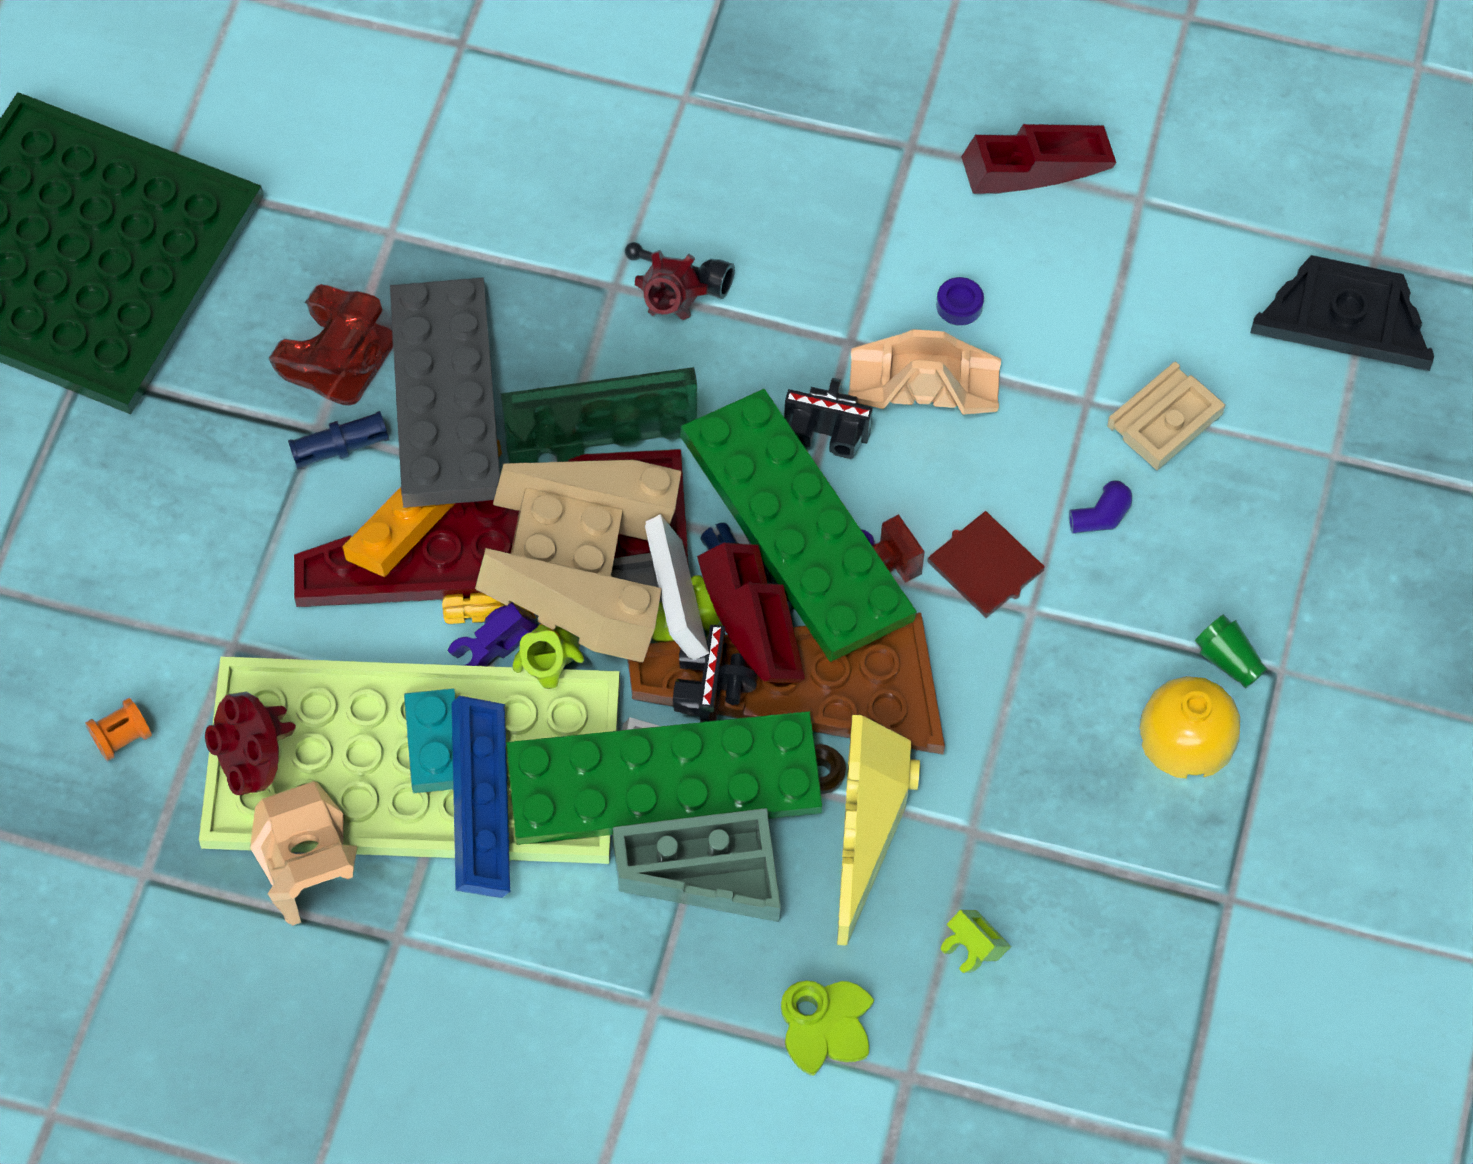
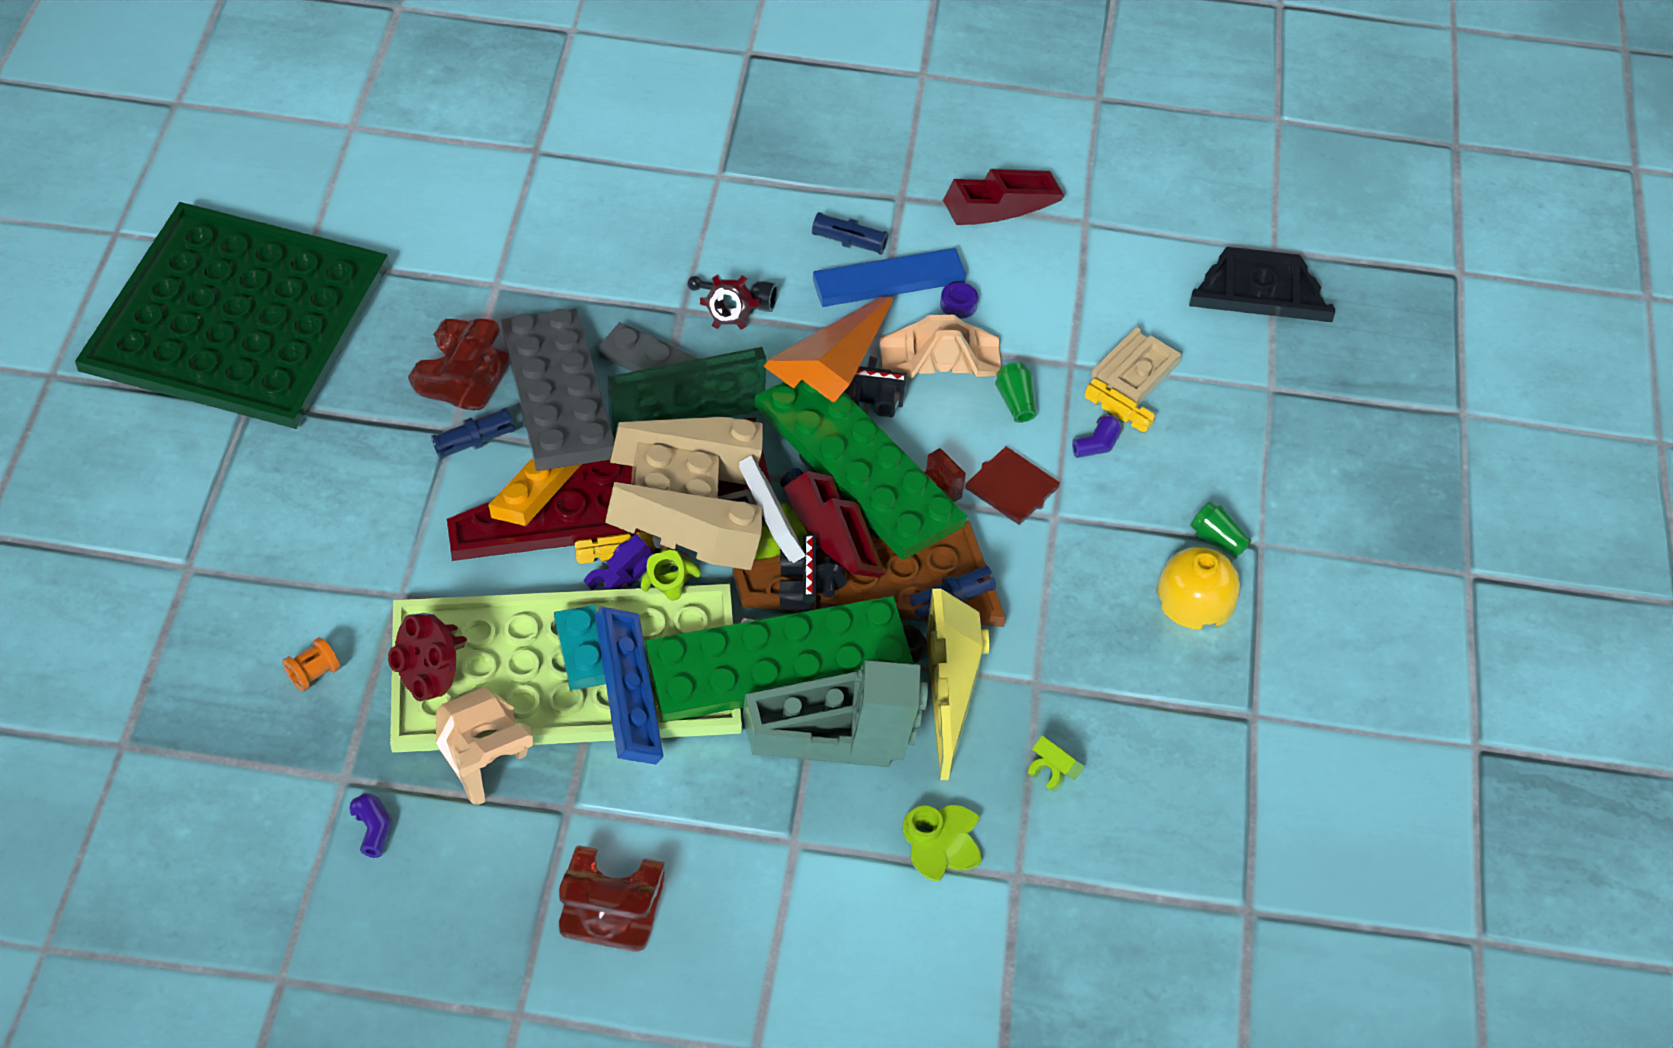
camera: 10 degrees left, 10 degrees down
(175, 932) = (377, 820): none -> dark purple arm
(425, 1072) = (609, 909): none -> clear red piece
(562, 348) = (638, 350): none -> dark grey hinge
(769, 871) = (886, 709): none -> sand green wedge
(782, 378) = (833, 353): none -> orange wedge
(864, 207) = (850, 233): none -> dark blue pin
(876, 262) = (888, 277): none -> blue tile
(886, 708) = (961, 587): none -> dark blue pin
(1010, 437) = (1017, 390): none -> green cone
(1136, 467) = (1120, 405): none -> yellow axle

